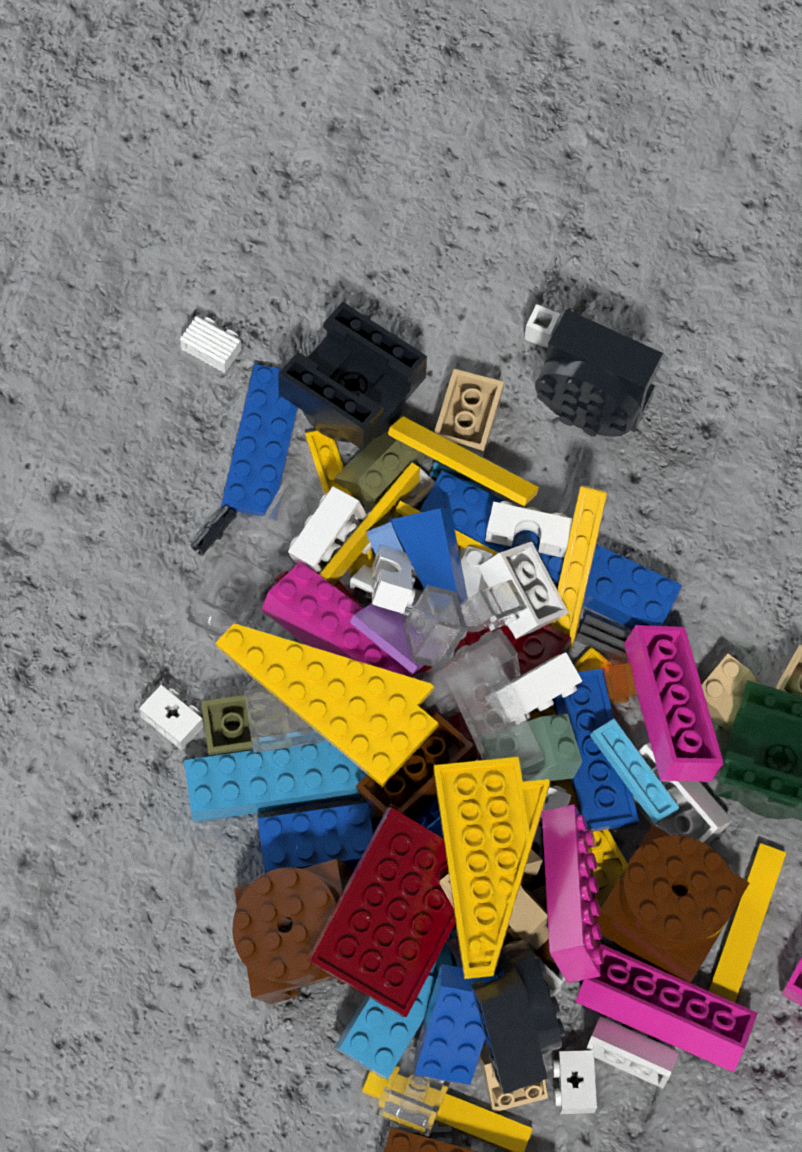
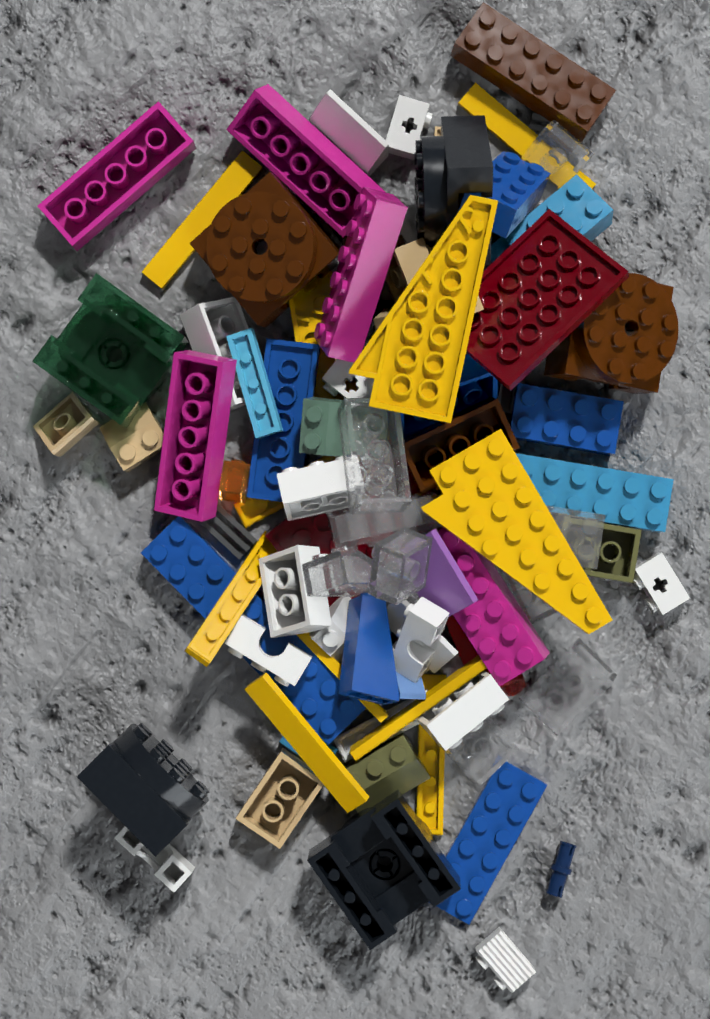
camera: 155 degrees left, 20 degrees up
(184, 436) = (561, 869): none -> dark blue pin
(213, 530) = (562, 760): black pin -> none

